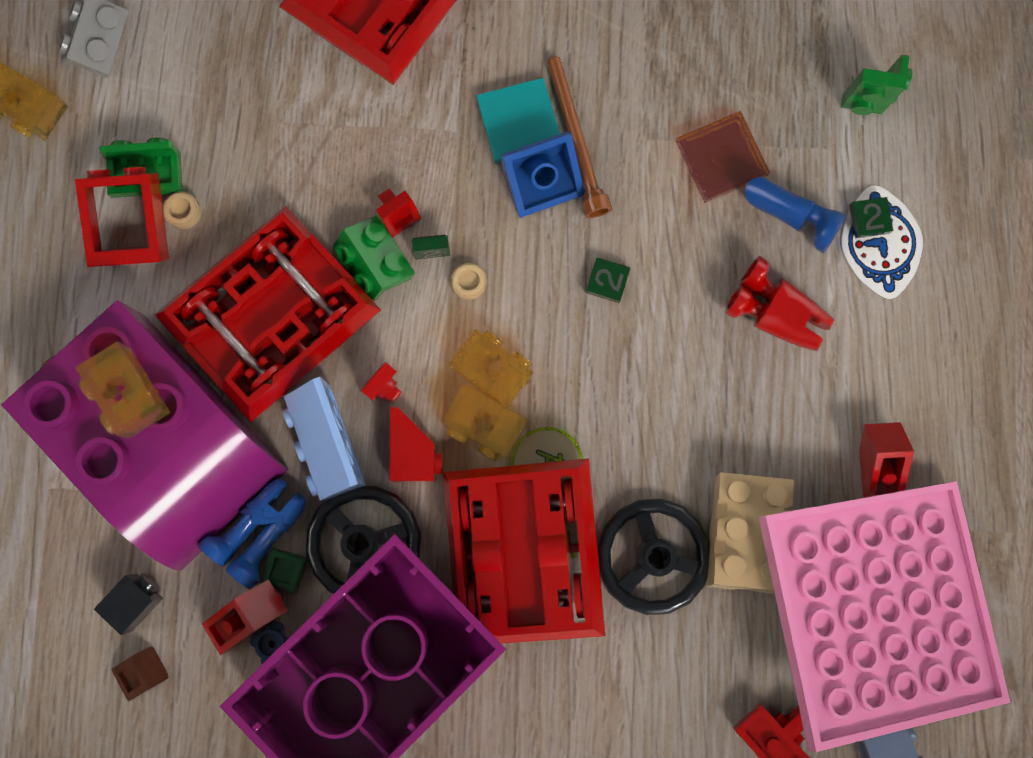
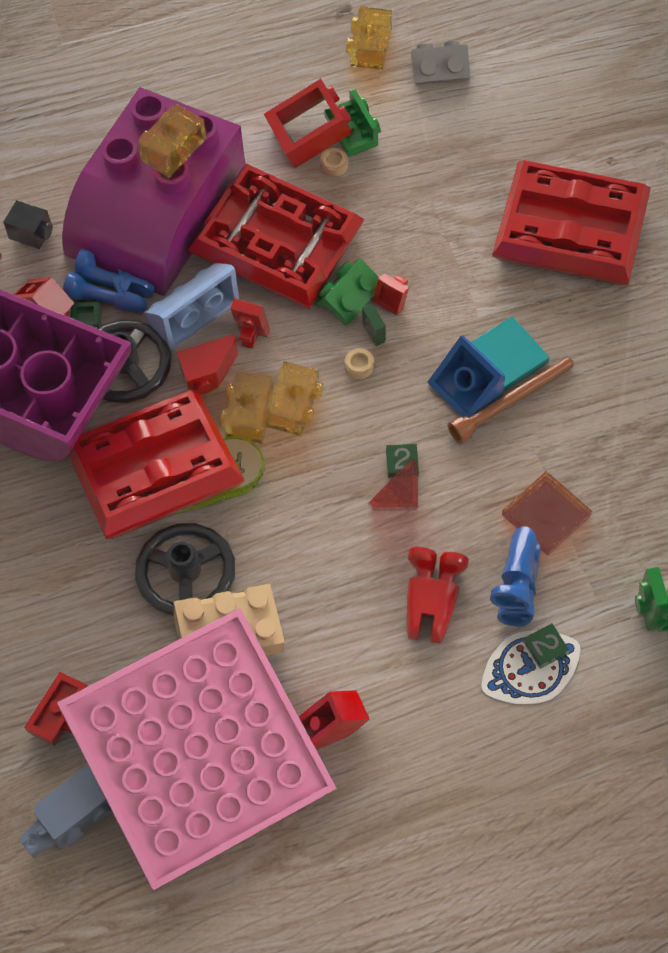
camera: 80 degrees right, 20 degrees down
(652, 296) = (399, 492): none -> clear red slope

